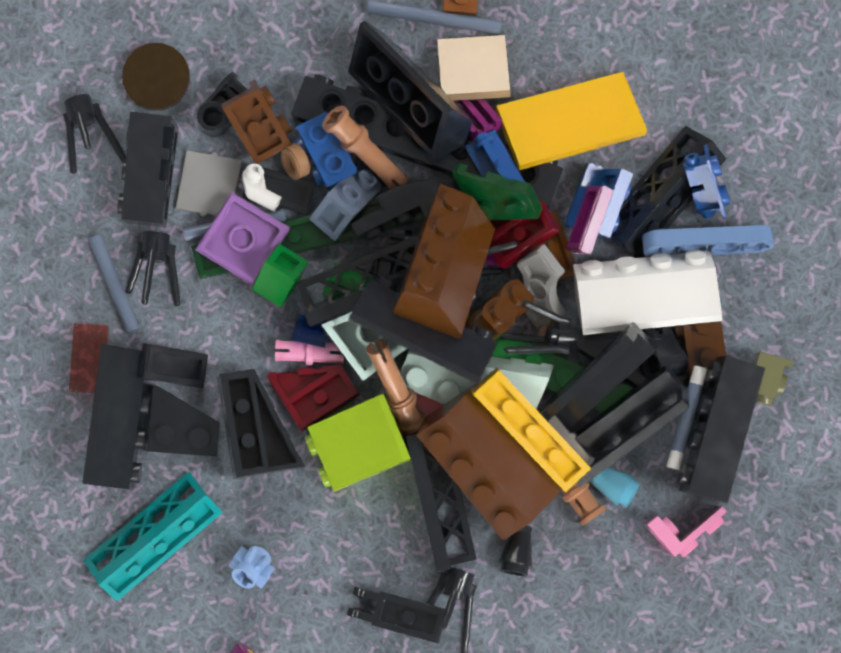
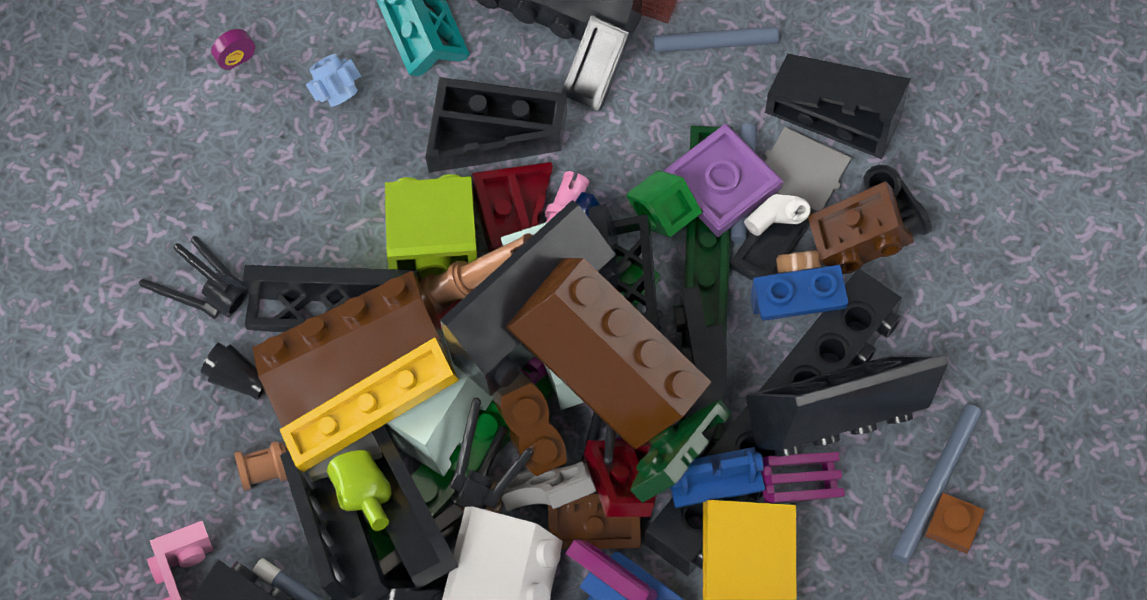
camera: 105 degrees right, 20 degrees down
(80, 115) = (929, 56): black plant -> none
(154, 249) = (741, 87): black plant -> none
(156, 76) = (951, 149): dark brown tile -> none
(180, 427) = (526, 55): black wing -> none
(346, 202) = (734, 306): sand blue bracket -> none
(355, 139) = (801, 323): nougat pin -> none
(401, 615) = (215, 217): black hinge -> none
(474, 67) = (855, 502): tan tile -> none
(590, 416) = (360, 486): none -> lime piece
(616, 486) = (266, 510): medium azure cone -> none

